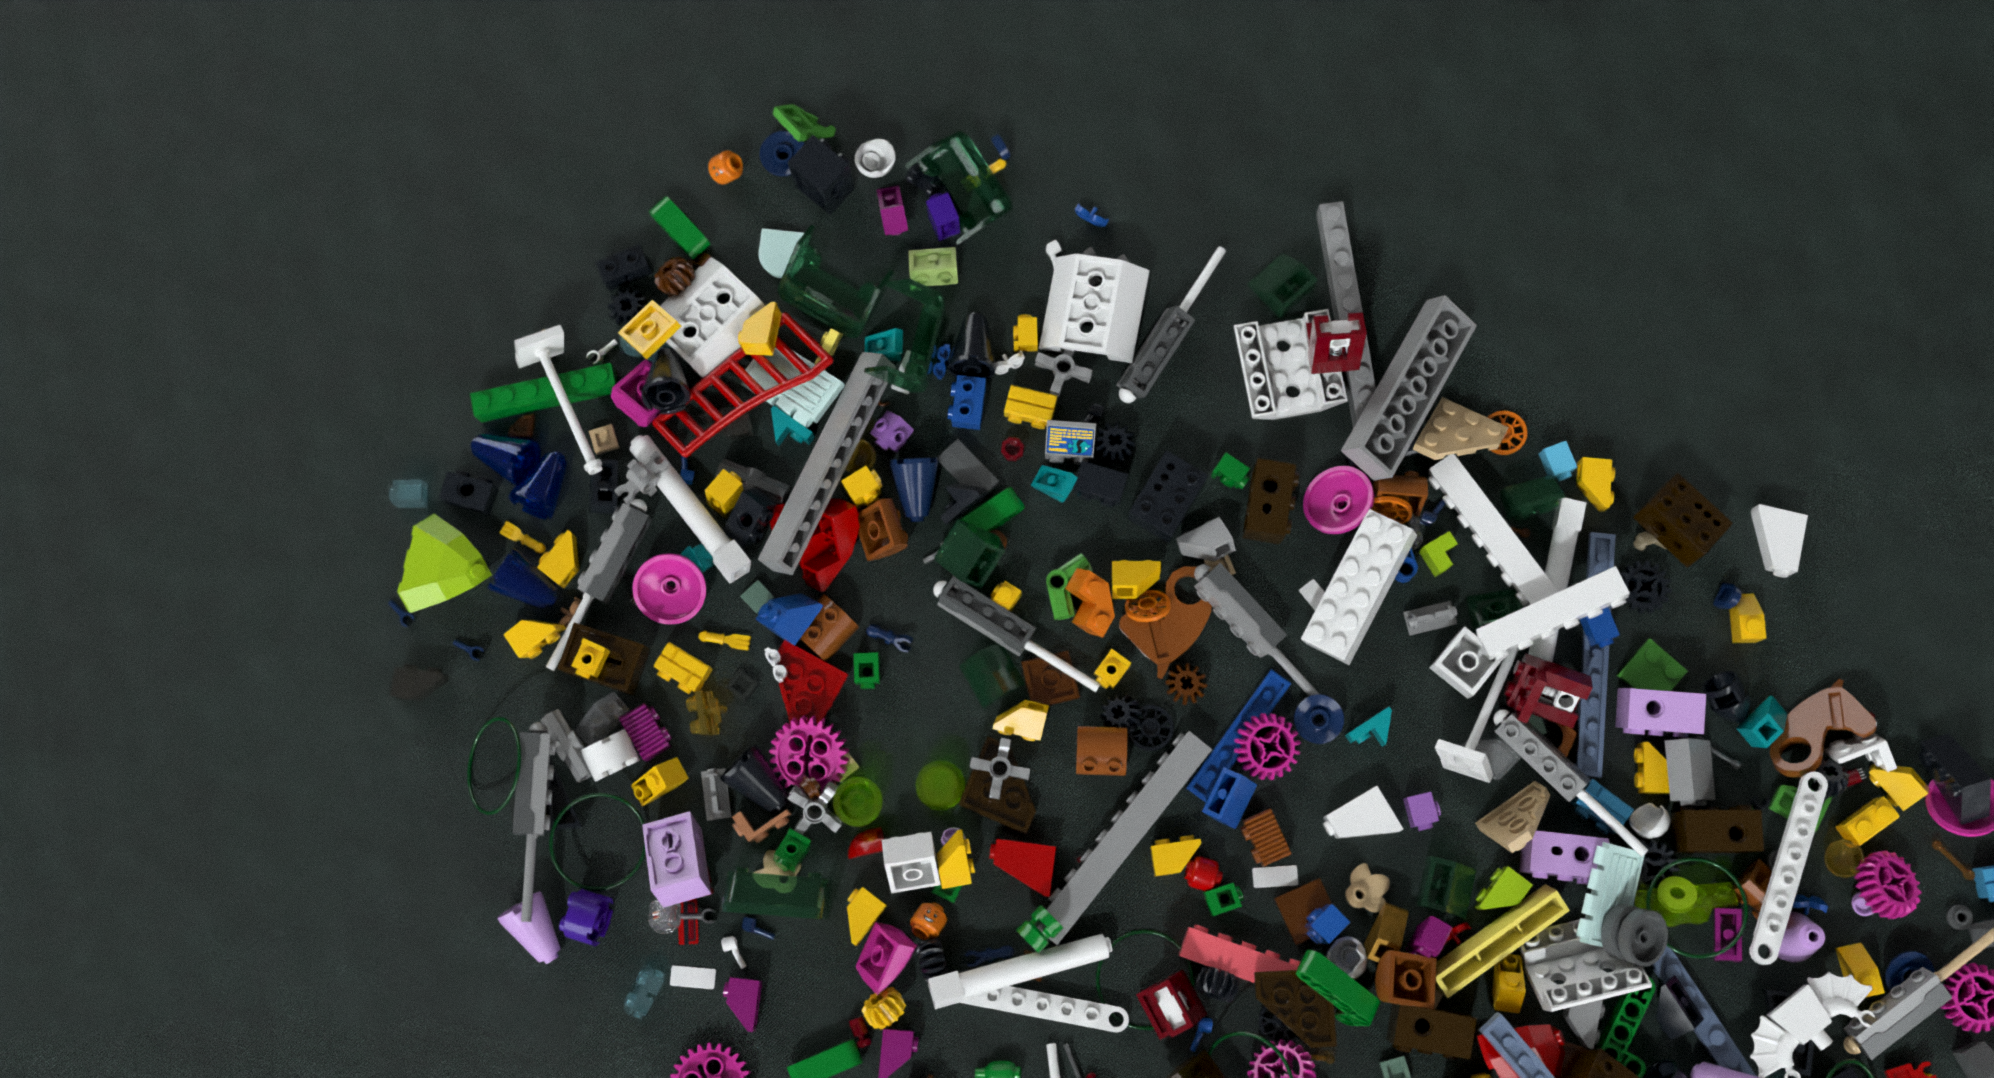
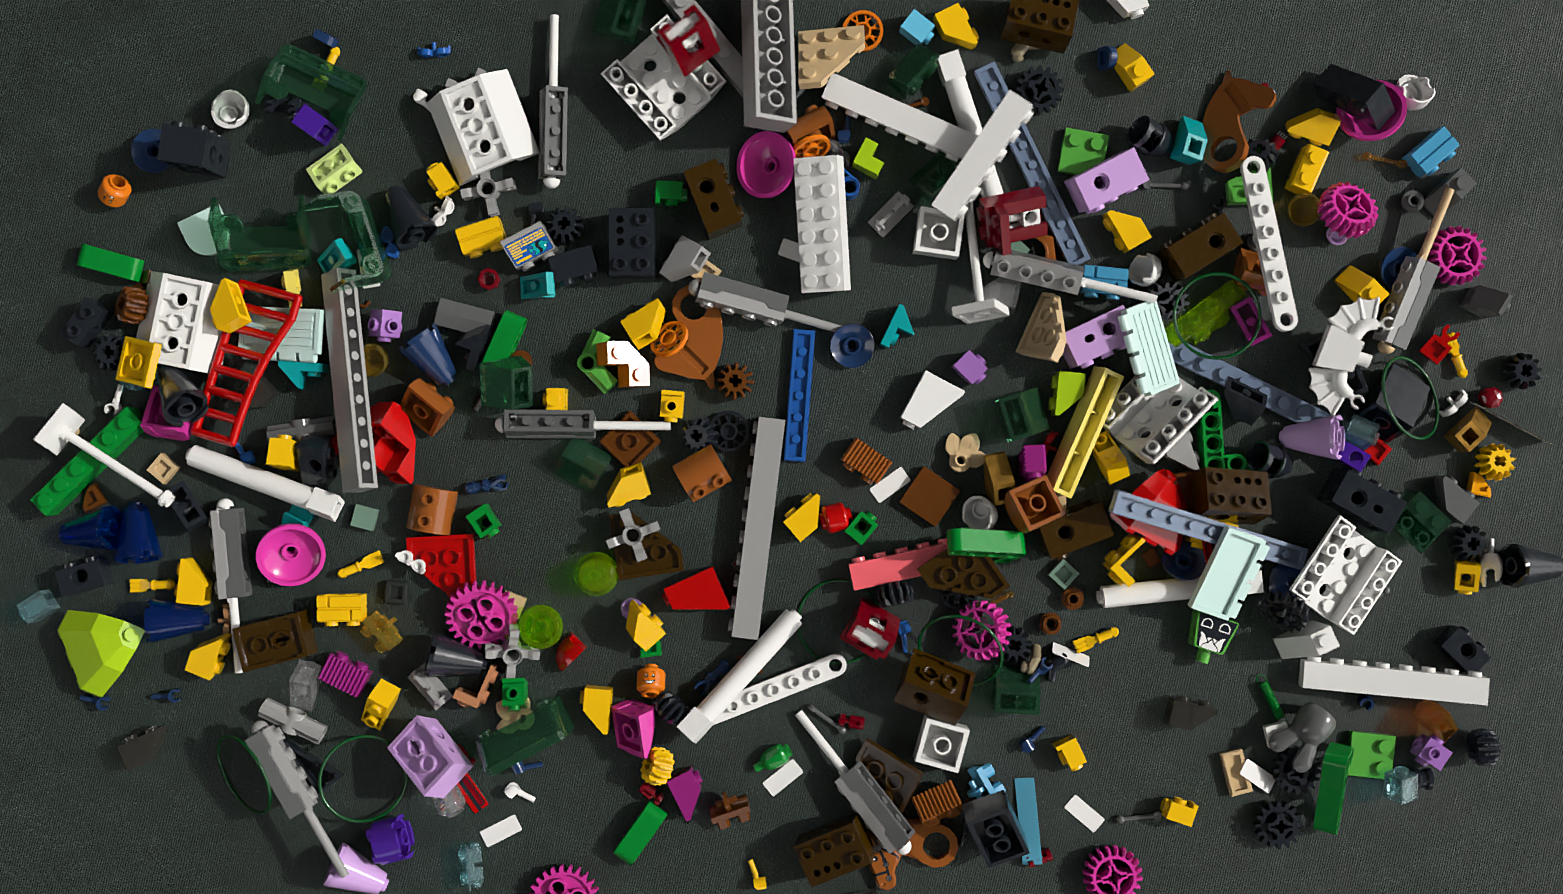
camera: 30 degrees left, 10 degrees up
(599, 655) = (268, 645): yellow brick -> none
(610, 755) = (328, 709): white brick -> none
(642, 477) = (211, 483): light grey pin -> none
(699, 916) = (476, 784): flat silver hand -> none
(744, 1000) = (550, 825): magenta slope -> none
(789, 616) = (397, 518): blue slope -> none
(800, 123) = (152, 116): bright green wing -> none
(810, 786) = (497, 638): reddish brown plate -> none
(863, 487) = (390, 382): yellow brick -> none
(892, 210) = (271, 144): magenta slope -> none
(911, 862) = (609, 647): white brick -> none
(968, 402) = (430, 263): blue brick -> none
(1031, 933) = (734, 645): green wheel -> none
(1229, 798) = (820, 448): blue brick -> none
(1262, 755) = (825, 383): dark pink gear -> none
(1325, 924) = (949, 500): blue brick -> none
(1600, 629) = (1026, 144): blue brick -> none
(1634, 935) = (1182, 366): dark grey wheel -> none
(1671, 903) = (1196, 305): lime piece -> none
(1690, 771) = (1154, 214): light grey brick -> none
(1800, 938) = (1306, 290): lavender cone -> none
(1814, 902) = (1300, 255): blue piece -> none
(1873, 747) = (1267, 118): white bracket -> none

